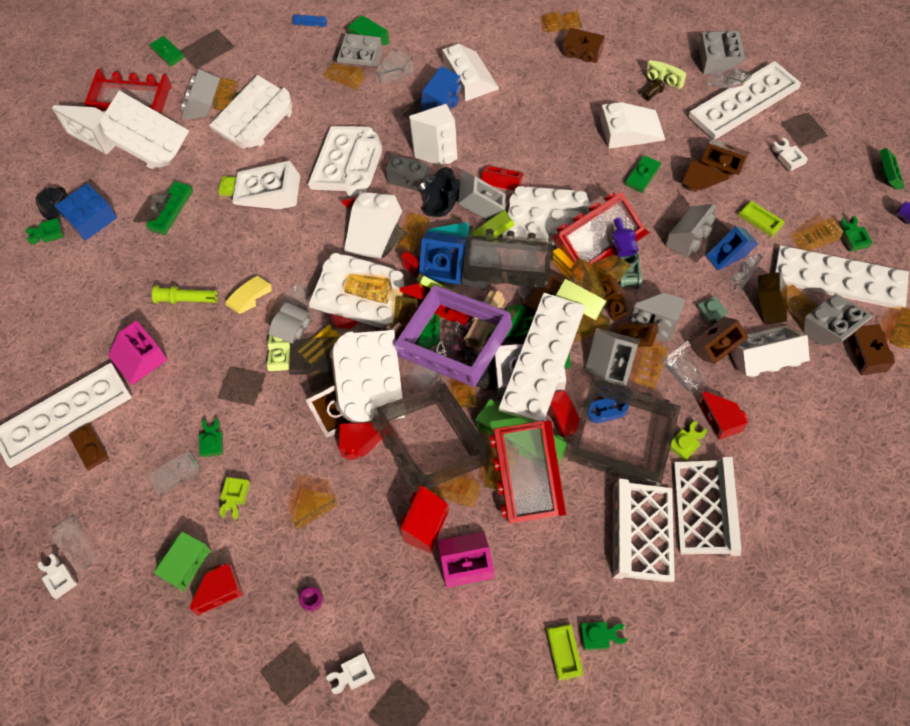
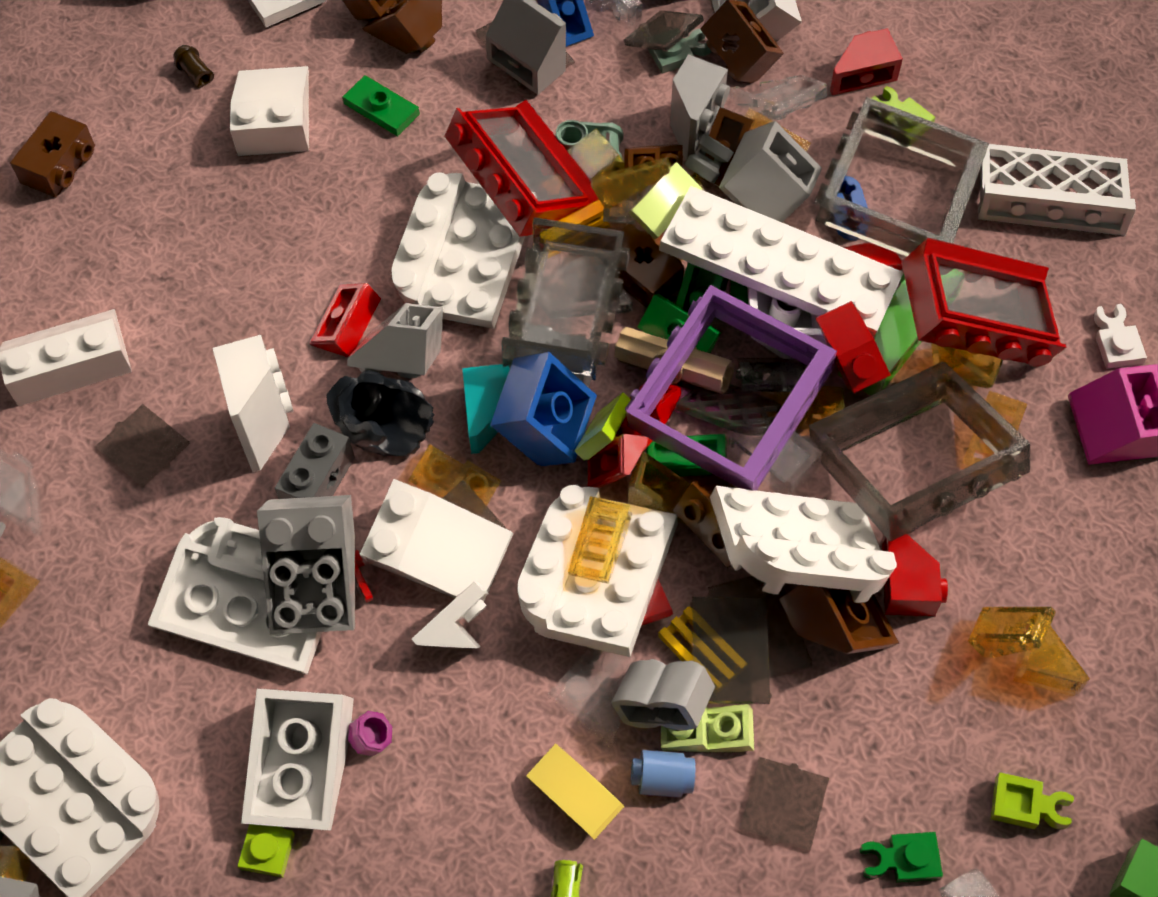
camera: 90 degrees left, 0 degrees up
(255, 330) = (663, 773): none -> medium blue brick
(279, 214) = (370, 733): none -> magenta tile
(322, 482) = (1001, 630): none -> clear yellow slope
(327, 237) = (445, 627): none -> white slope
(353, 169) = (308, 563): none -> light grey slope
(411, 263) = (535, 476): red plate -> none
(424, 519) = (1067, 475): red slope -> none
(441, 90) = (132, 396): blue brick -> none
(483, 394) = (857, 351): none -> red slope
(499, 224) = (474, 330): lime tile -> none
(525, 566) = (1118, 344): none -> white plate
(620, 323) = (704, 165): none -> dark grey wheel
(624, 239) = (547, 128): dark purple piece -> none
(663, 71) = (156, 46): yellowish green slope -> none
(724, 301) = (663, 30): none -> clear smoke piece
(728, 504) = (1019, 76): white fence -> none

